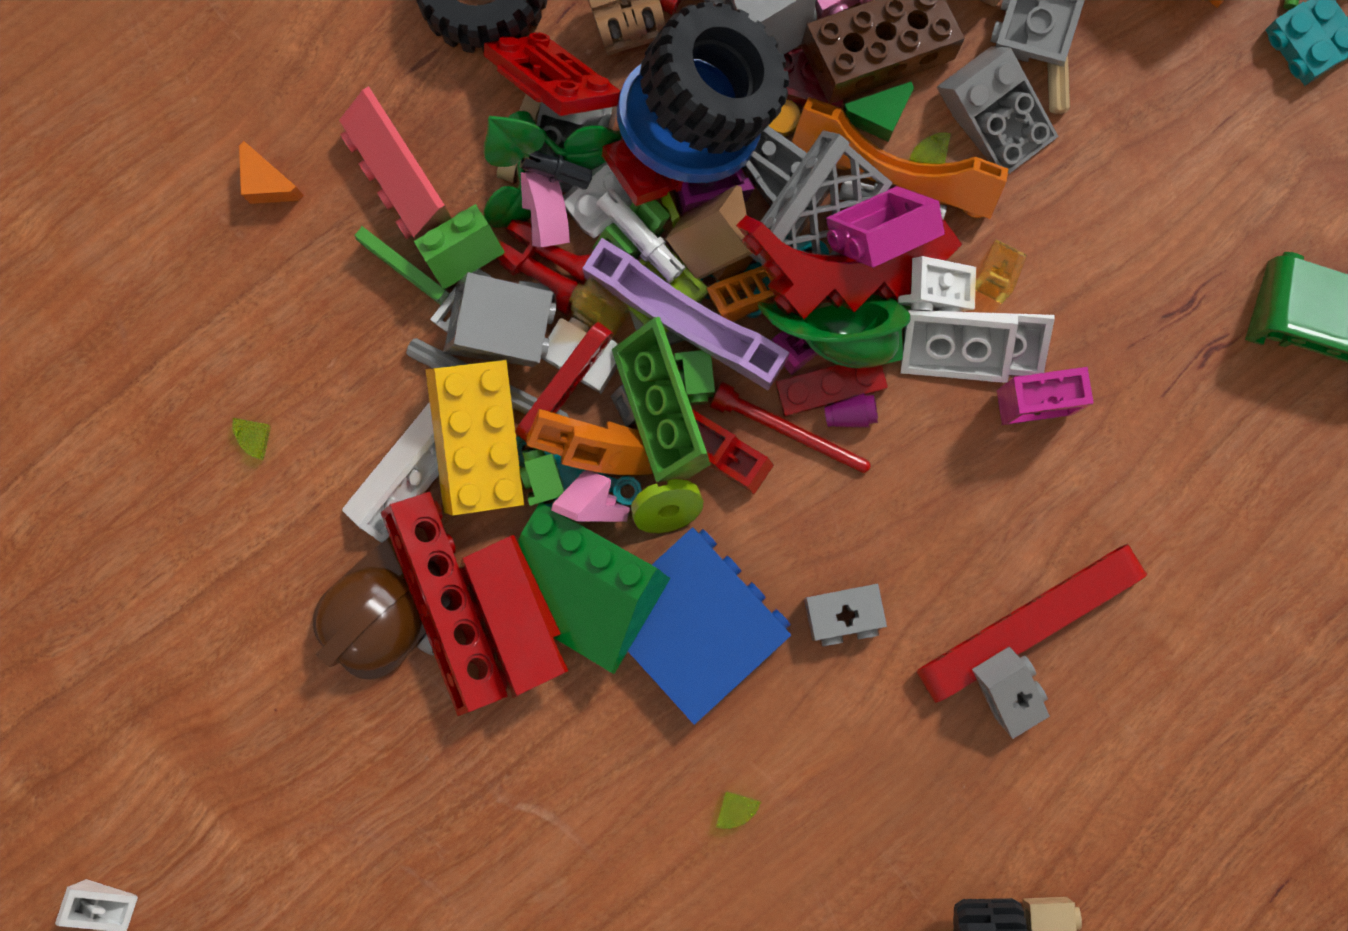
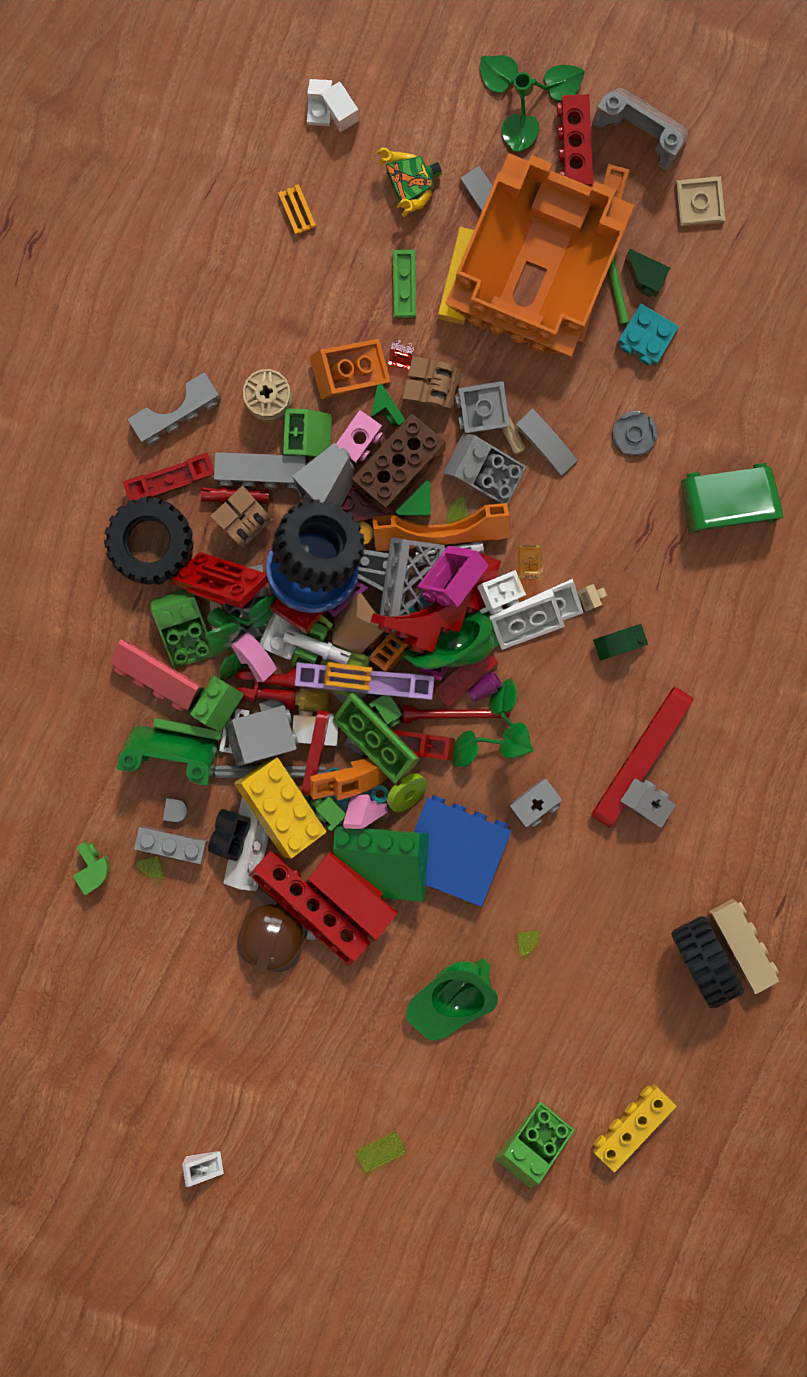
camera: 25 degrees left, 5 degrees up
(172, 402) = (97, 869): none -> bright green brick
(262, 181) = (81, 717): orange slope -> none
(294, 416) = (171, 845): none -> light grey arch
(326, 373) = (175, 810): none -> light grey tile
(382, 444) = (229, 834): none -> black brick
(397, 307) = (148, 742): none -> green windscreen
(459, 121) = (181, 627): none -> bright green slope
(558, 169) = (254, 632): black axle -> none
(585, 841) = (452, 999): none -> green piece
(689, 310) = (366, 678): none -> light orange tile
(860, 504) = (515, 739): none -> green plant
(1047, 393) = (588, 628): dark pink window -> none
(1065, 355) = (591, 597): none -> tan tile
(1078, 441) = (620, 642): none -> dark green brick
(1103, 112) = (546, 442): none -> light grey slope
(1233, 163) = (634, 433): none -> flat silver tile

